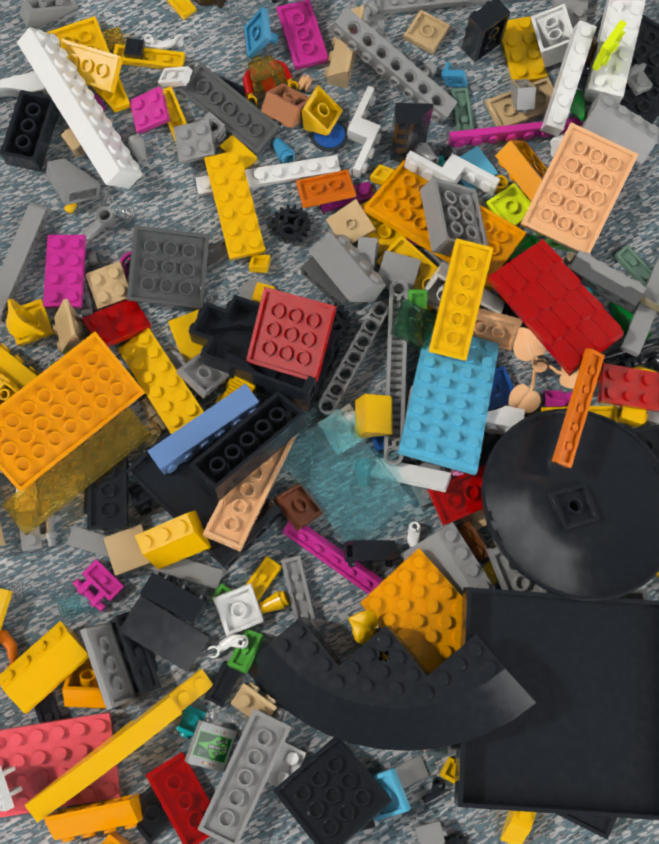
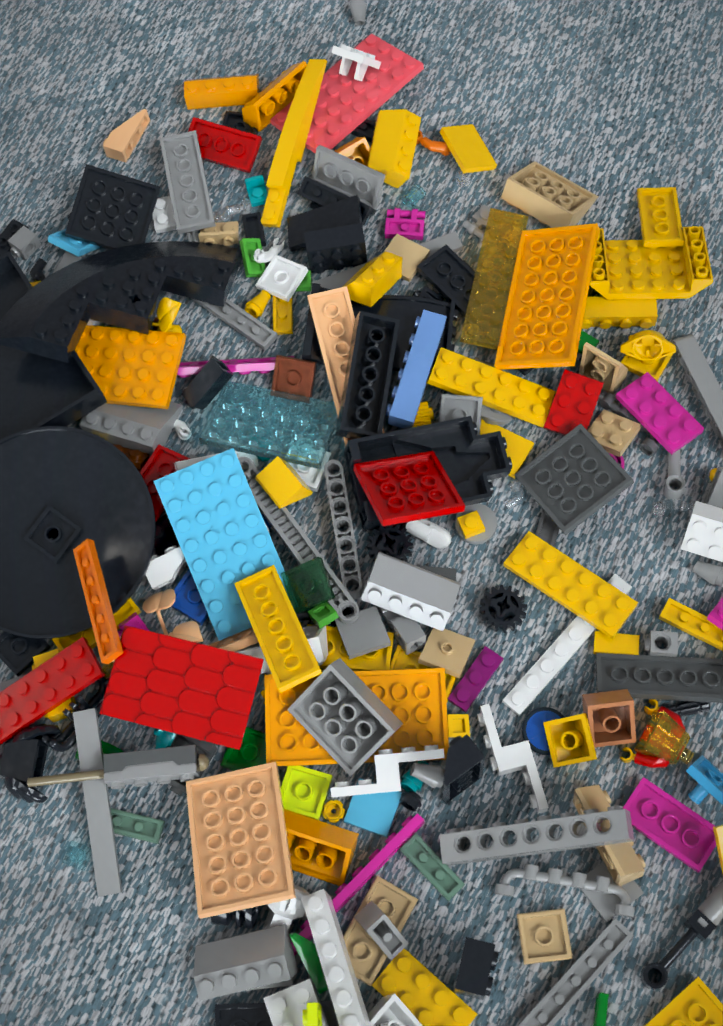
camera: 155 degrees right, 10 degrees down
(194, 141) = (662, 612): light grey plate -> none
(210, 746) = (229, 185): tile -> none
(259, 263) = (498, 550): yellow plate -> none
(283, 151) = (574, 677): dark azure cone -> none
(305, 82) = (618, 768): light nougat plate -> none
(325, 188) = (499, 667): orange tile -> none
(454, 78) = (470, 896): dark azure bracket -> none

